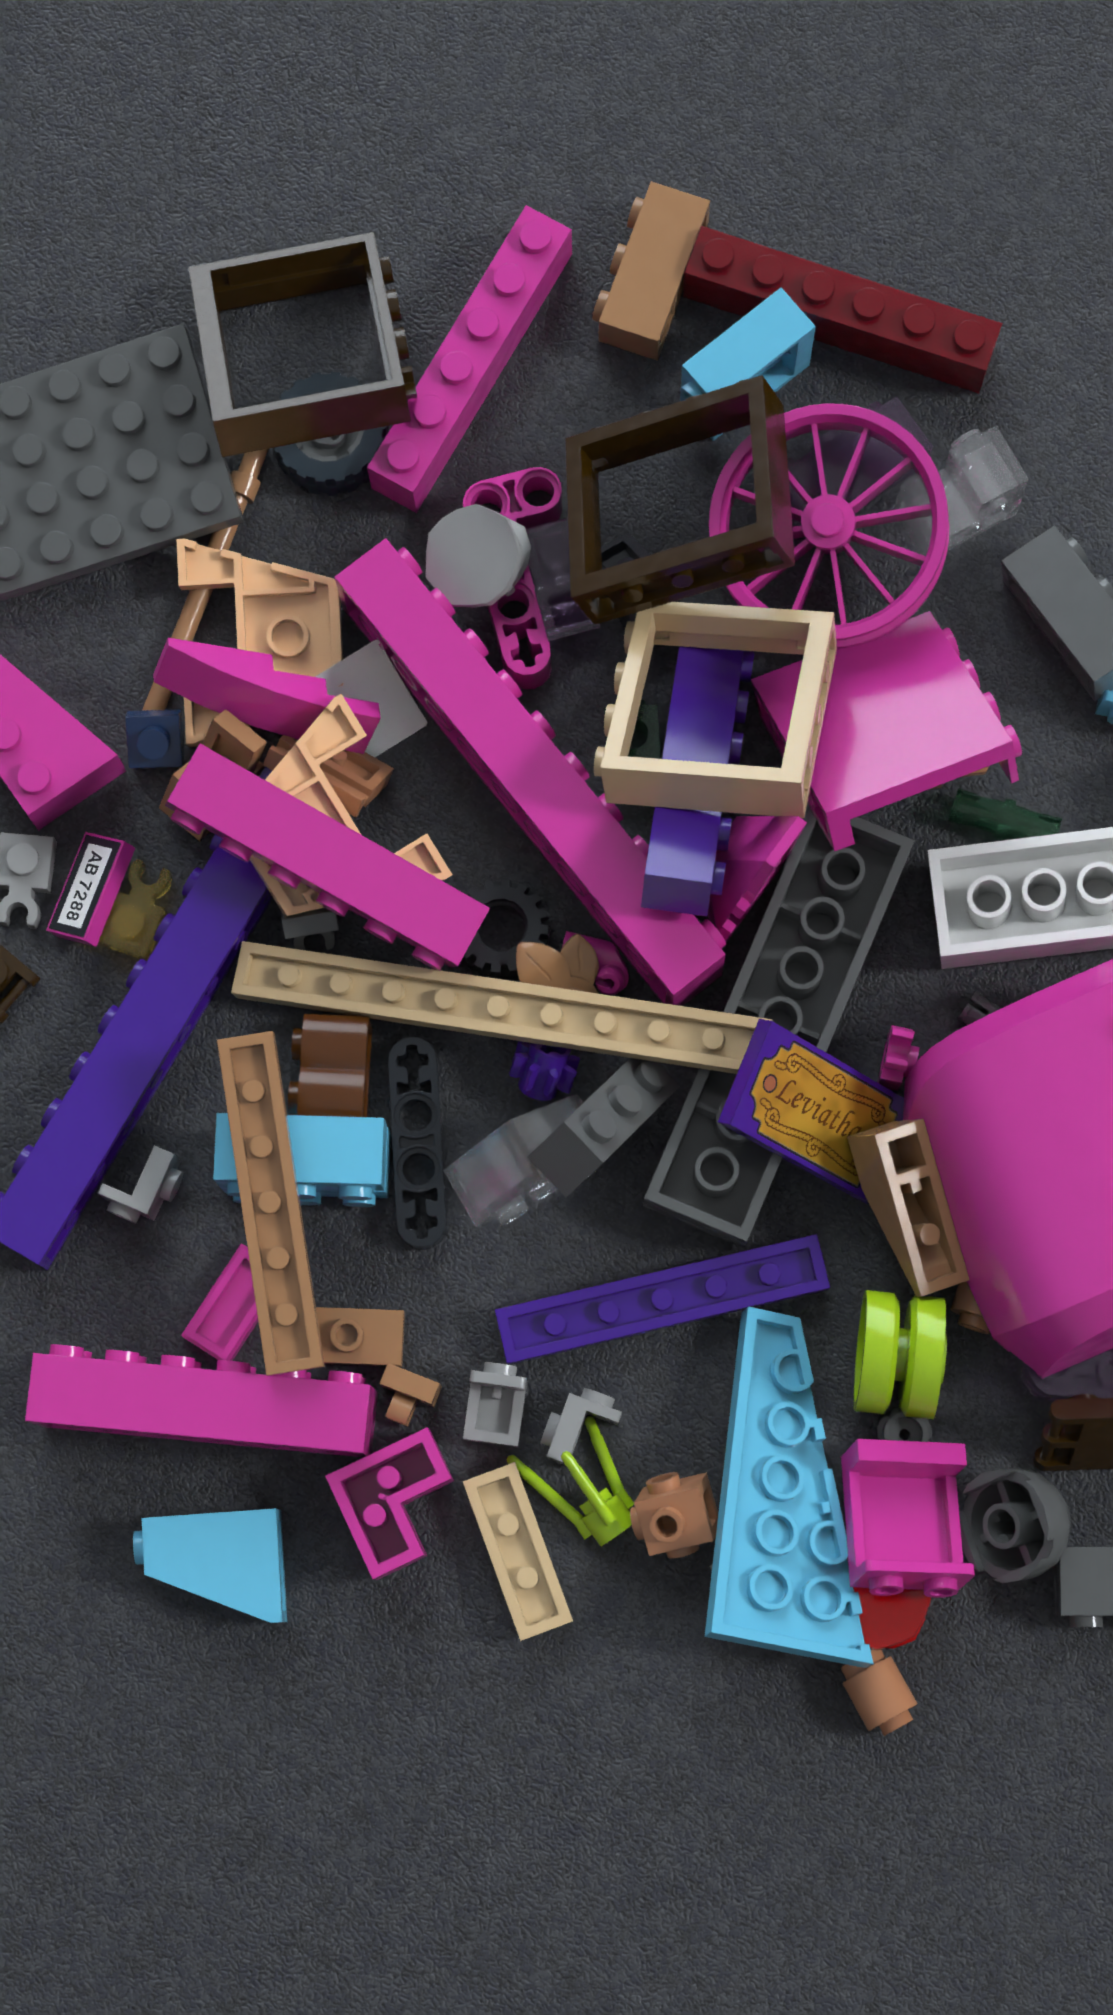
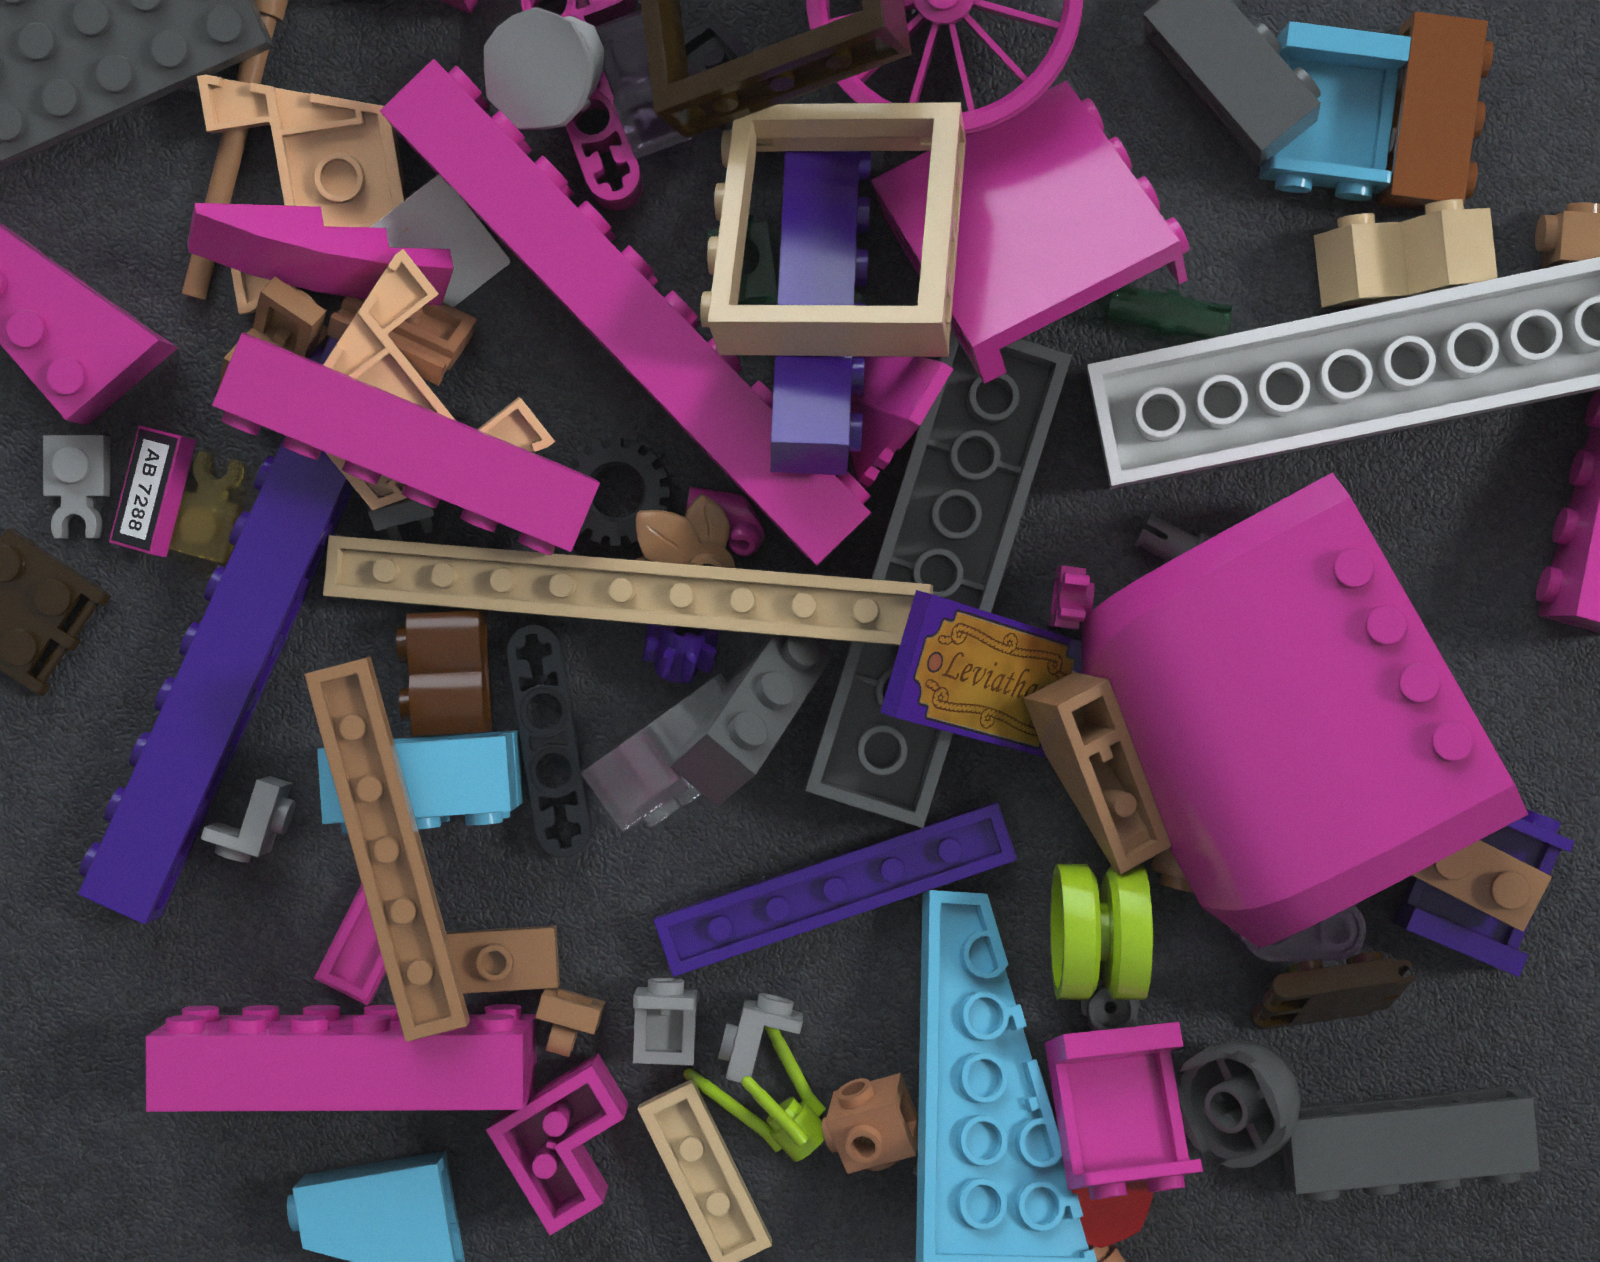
camera: 10 degrees left, 10 degrees up
(154, 738) = (203, 310): dark blue plate -> none

